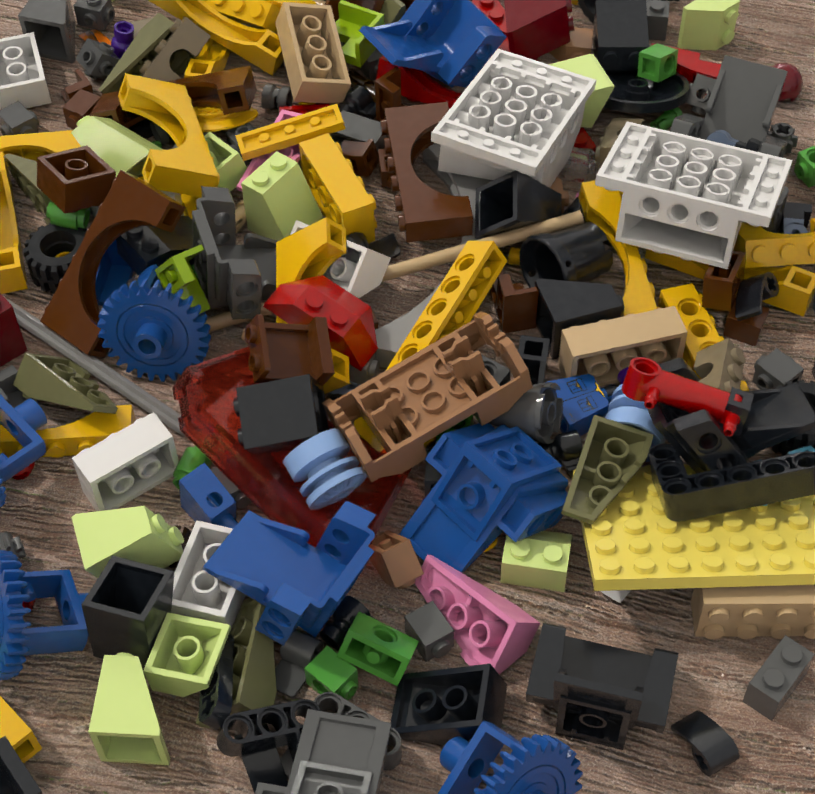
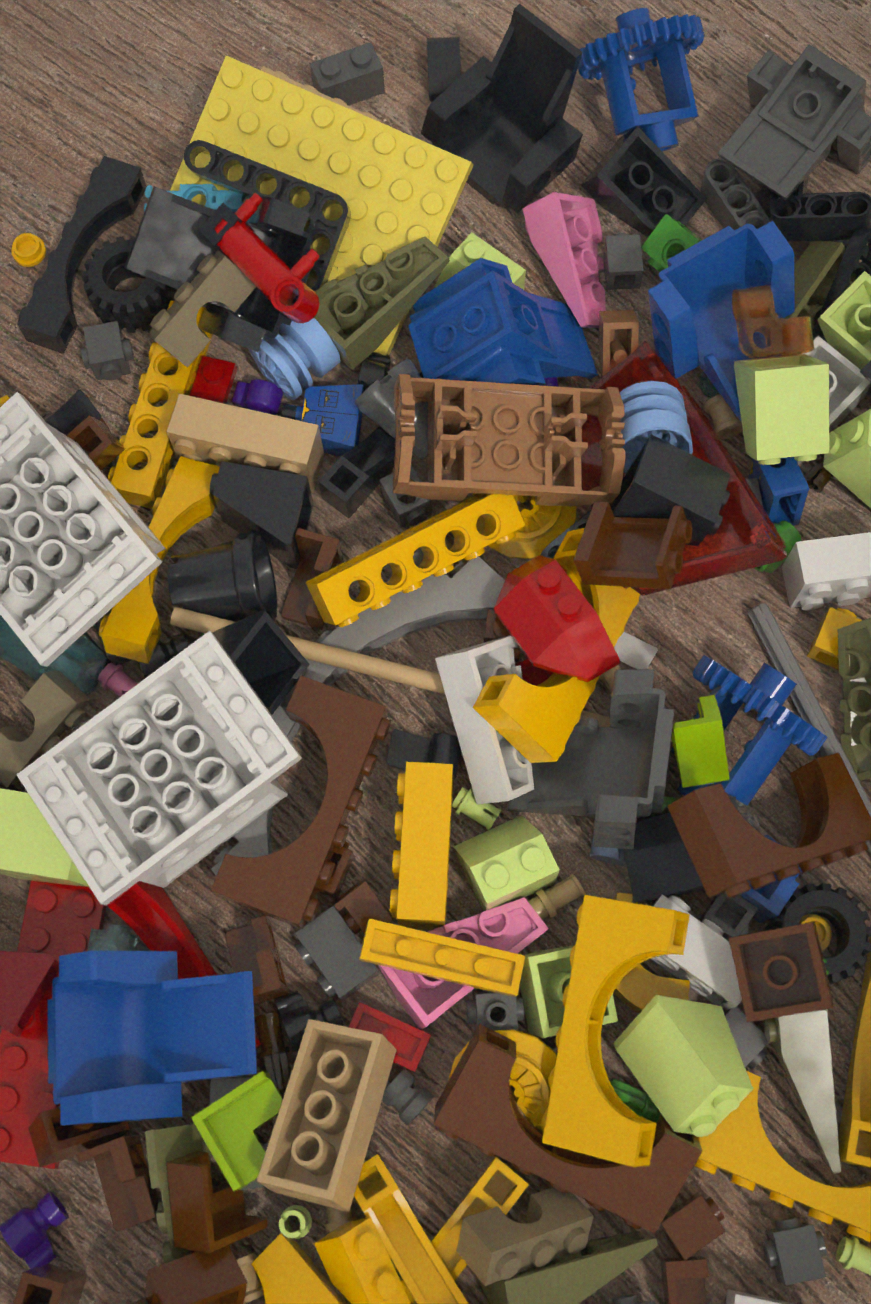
camera: 150 degrees left, 20 degrees up
(229, 519) = (784, 407): none -> yellowish green slope
(262, 559) = (756, 313): none -> clear orange piece

